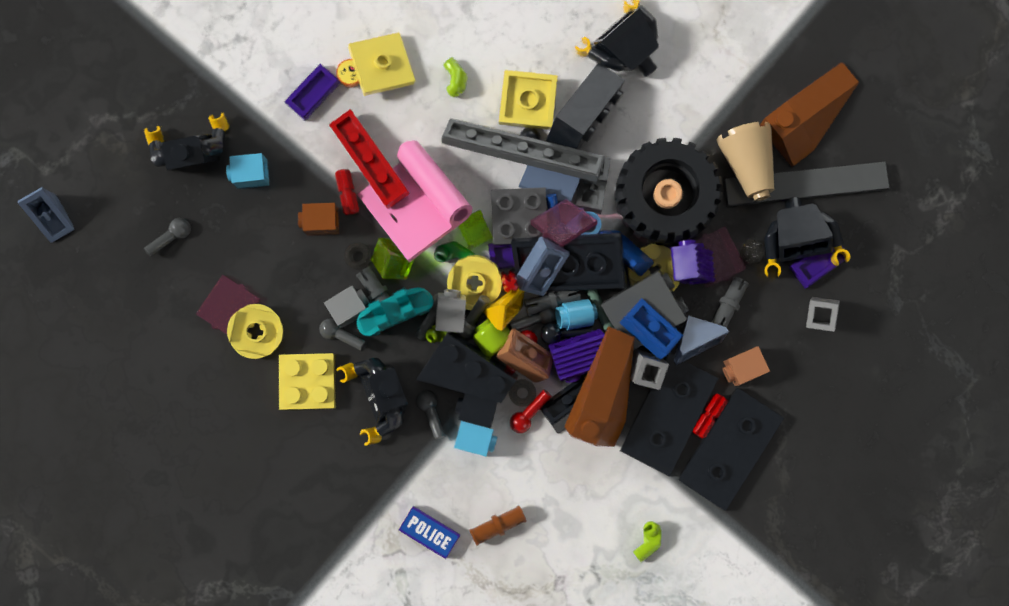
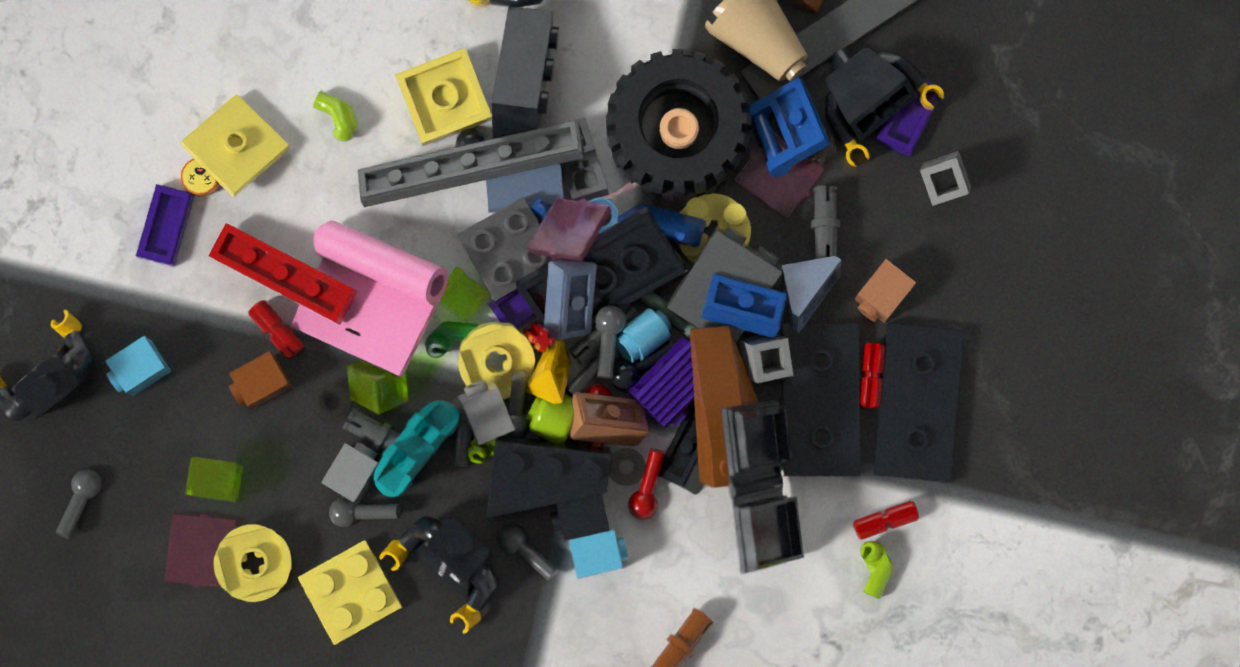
camera: 25 degrees left, 0 degrees up
(258, 266) = (214, 479): none -> clear neon green panel
(559, 295) = (610, 322): none -> dark grey bar
(594, 471) = (763, 517): none -> black piece
(665, 512) = (893, 517): none -> red piece
(692, 263) = (754, 198): dark purple brick -> none
(745, 229) = (797, 122): none -> blue plate

